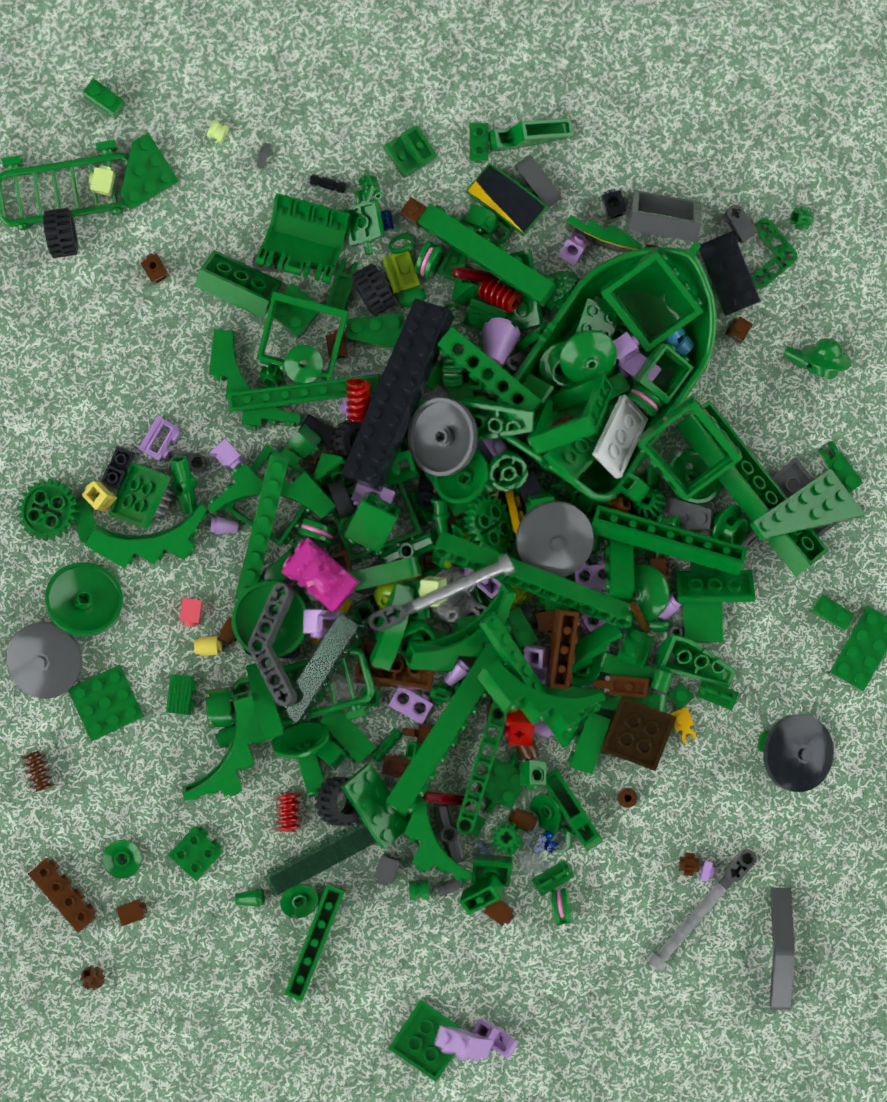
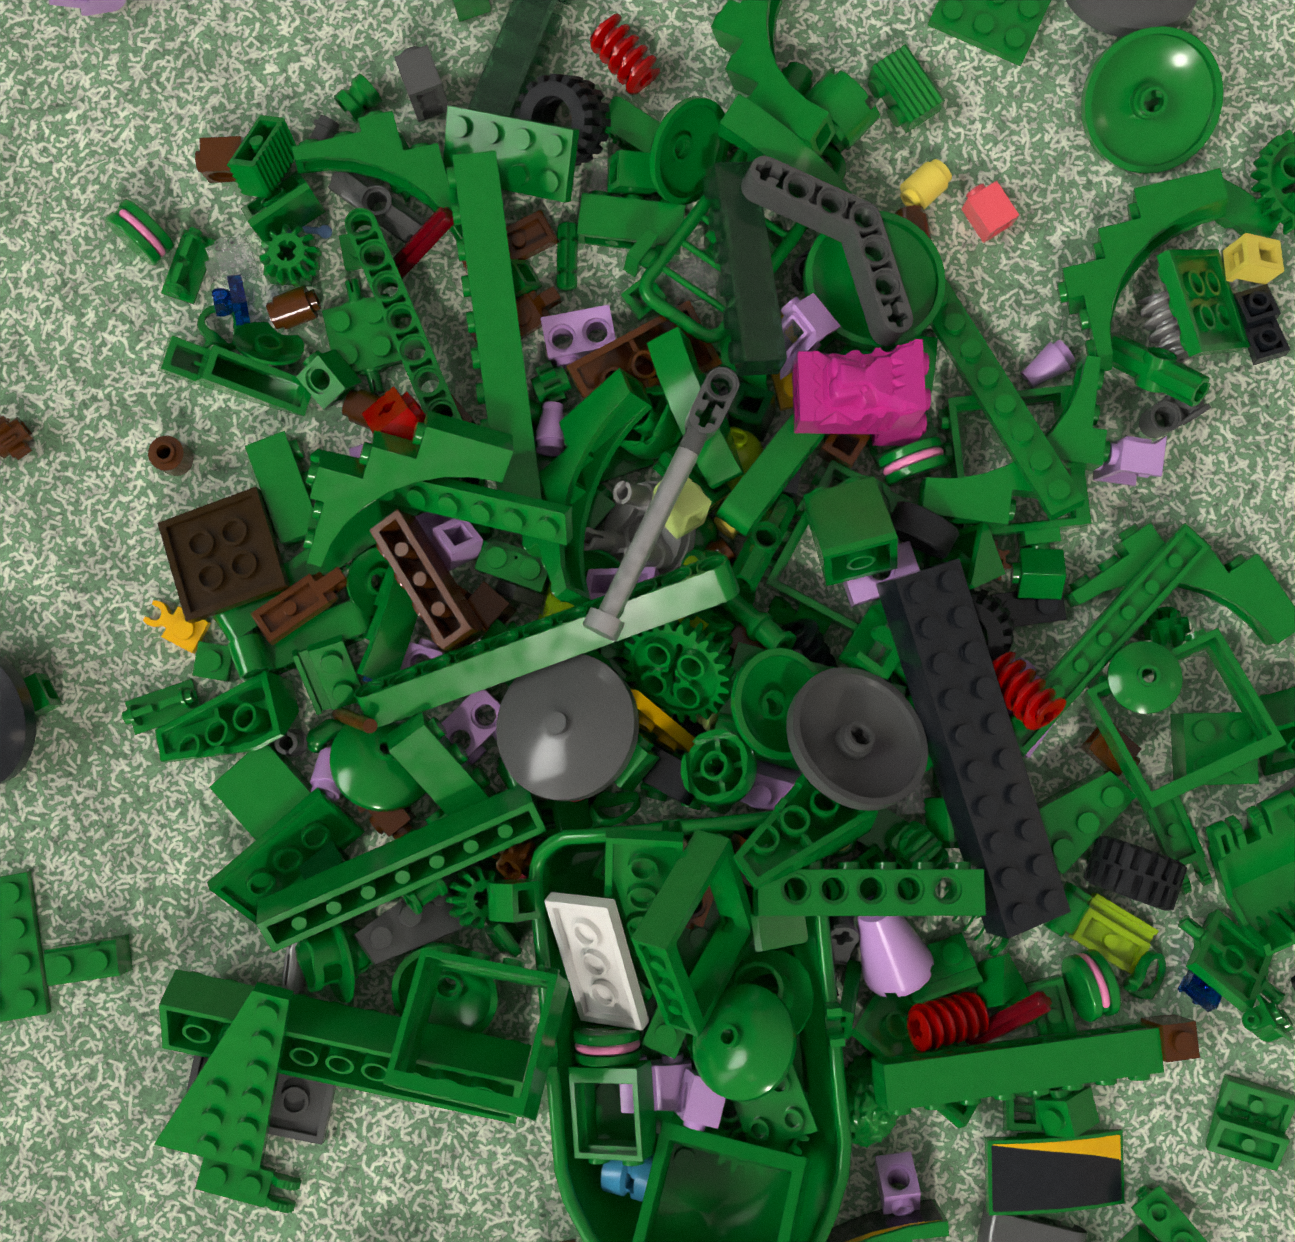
camera: 140 degrees right, 0 degrees up
(159, 439) = (1242, 408): lavender window -> none

